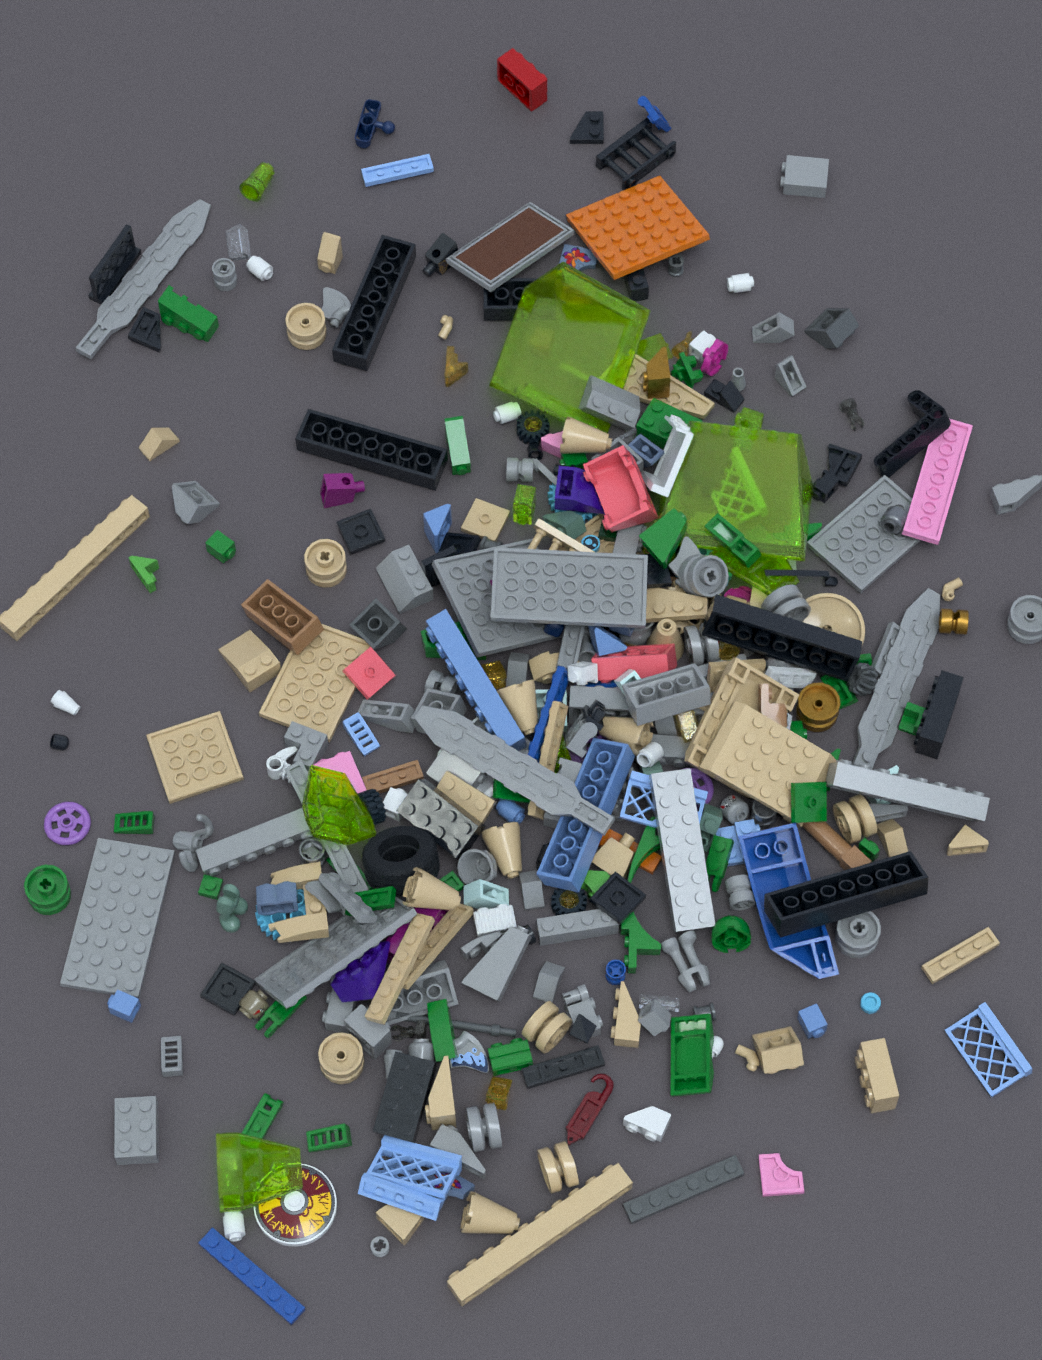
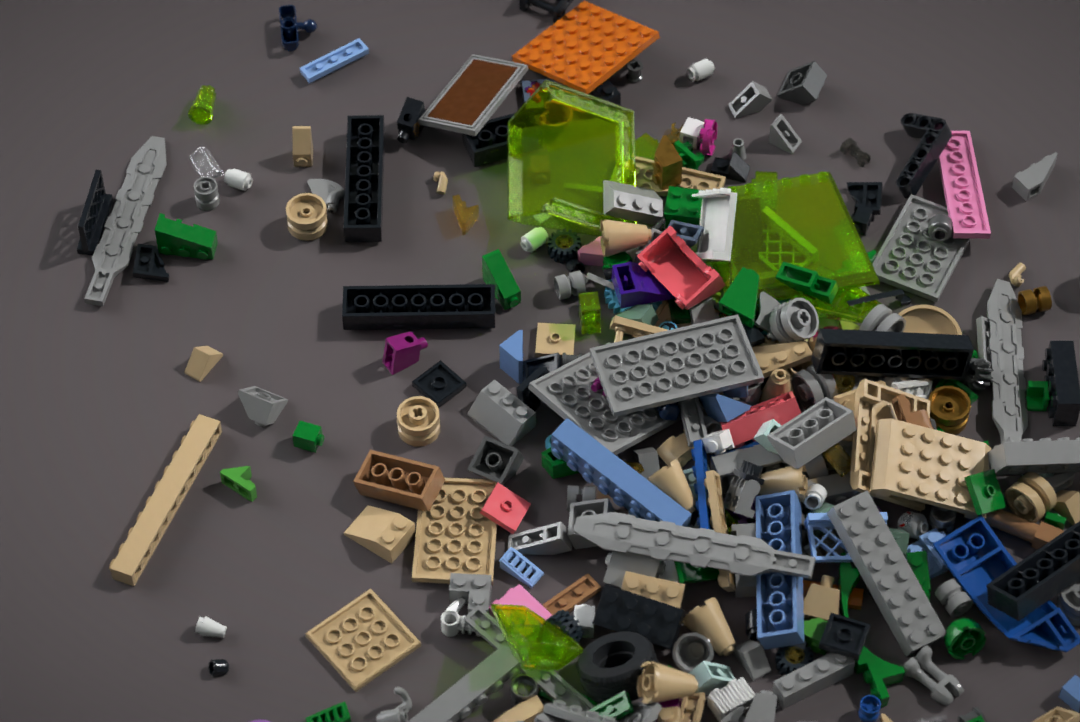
camera: 20 degrees left, 10 degrees down
(510, 811) = (699, 592): medium blue brick -> none

